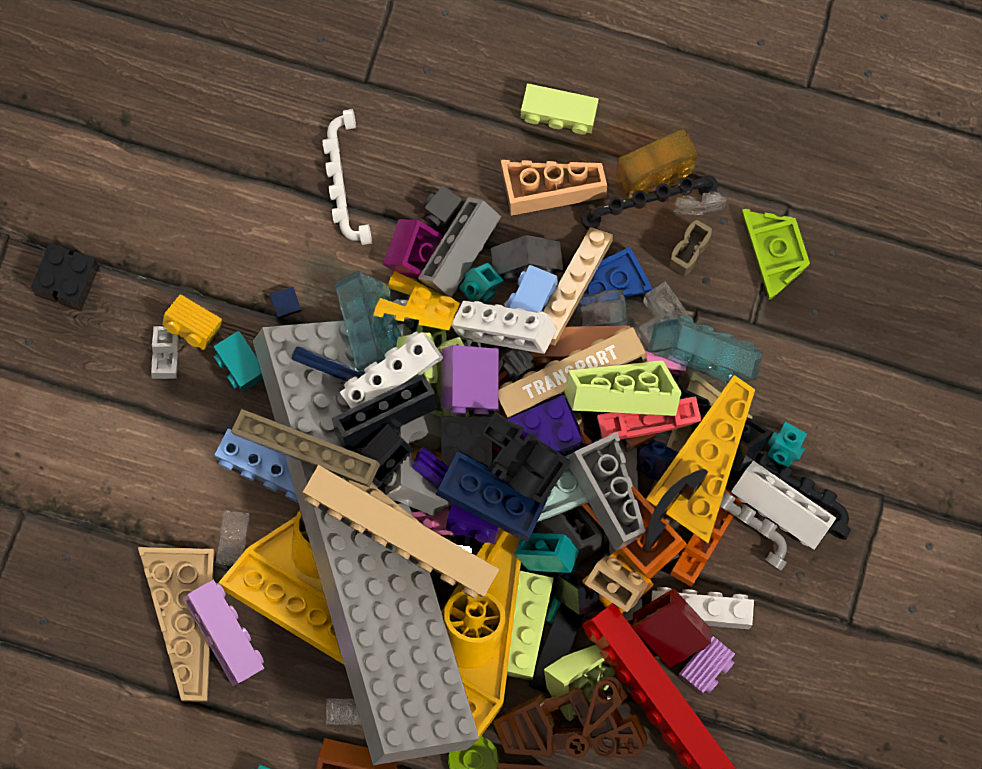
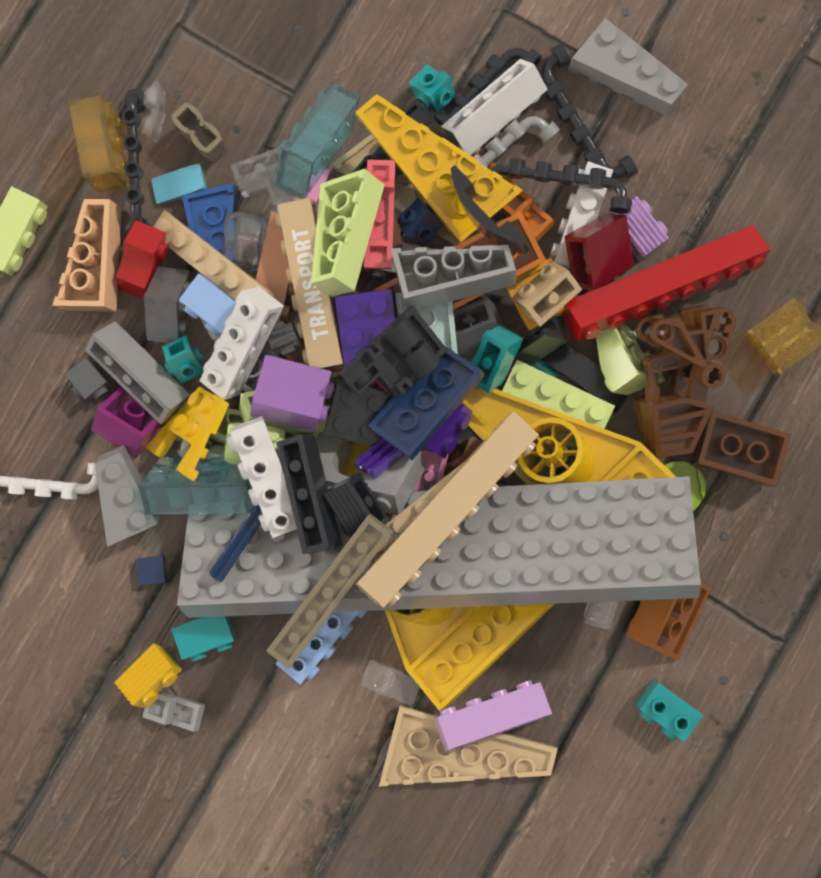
camera: 70 degrees left, 10 degrees up
(65, 274) = (61, 801): black piece -> none
(345, 258) = (121, 496): none -> light grey wedge
(567, 225) = (142, 254): none -> red brick
(641, 242) = (177, 183): none -> medium azure slope
(733, 583) = (571, 177): none -> black bar
(776, 249) = (221, 46): lime wing -> none
(800, 576) = (568, 112): none -> black bar
(856, 613) = (627, 68): none -> light grey wedge

